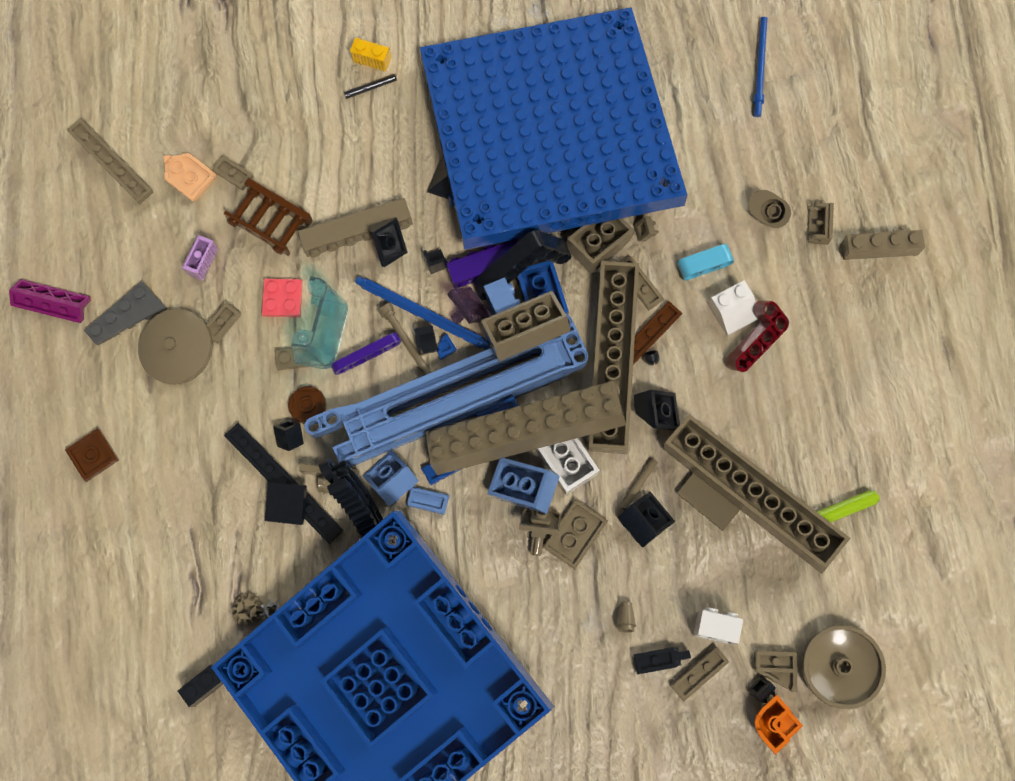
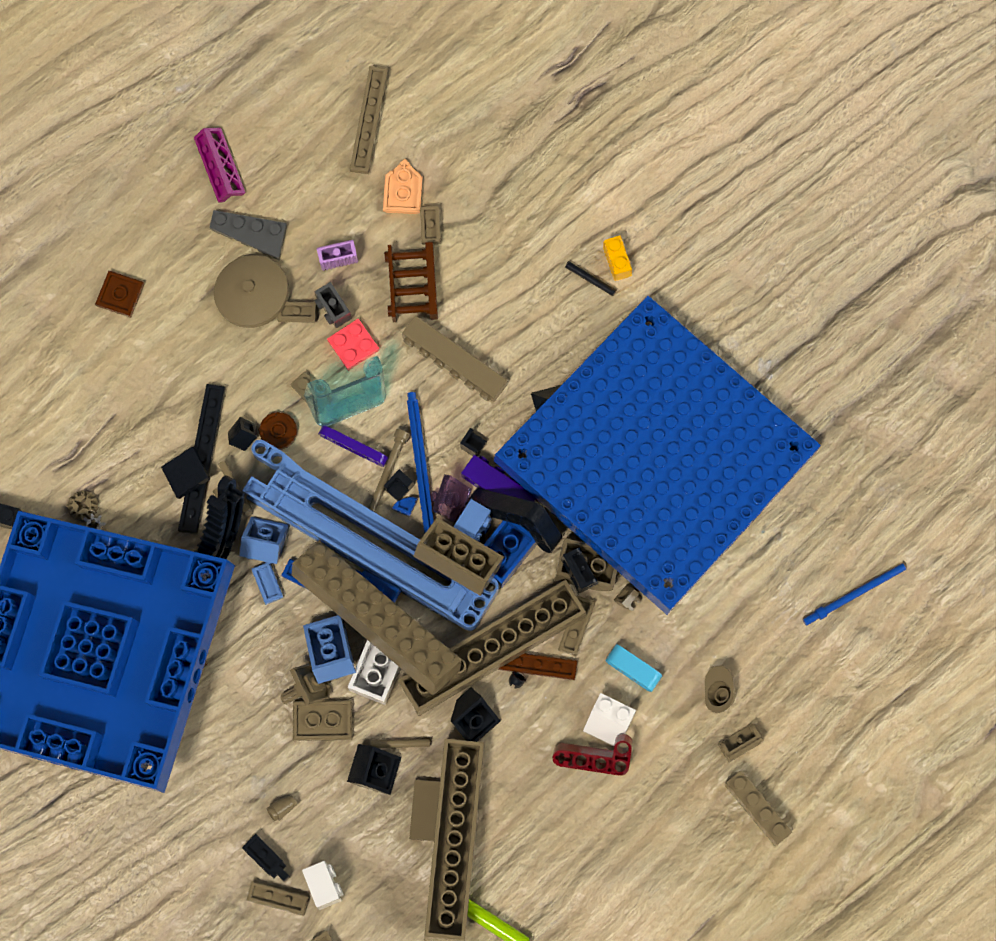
camera: 55 degrees right, 0 degrees up
(238, 289) = (333, 305): none -> dark grey brick
(388, 241) = (458, 393): black slope -> none
(603, 245) = (578, 570): none -> black hinge

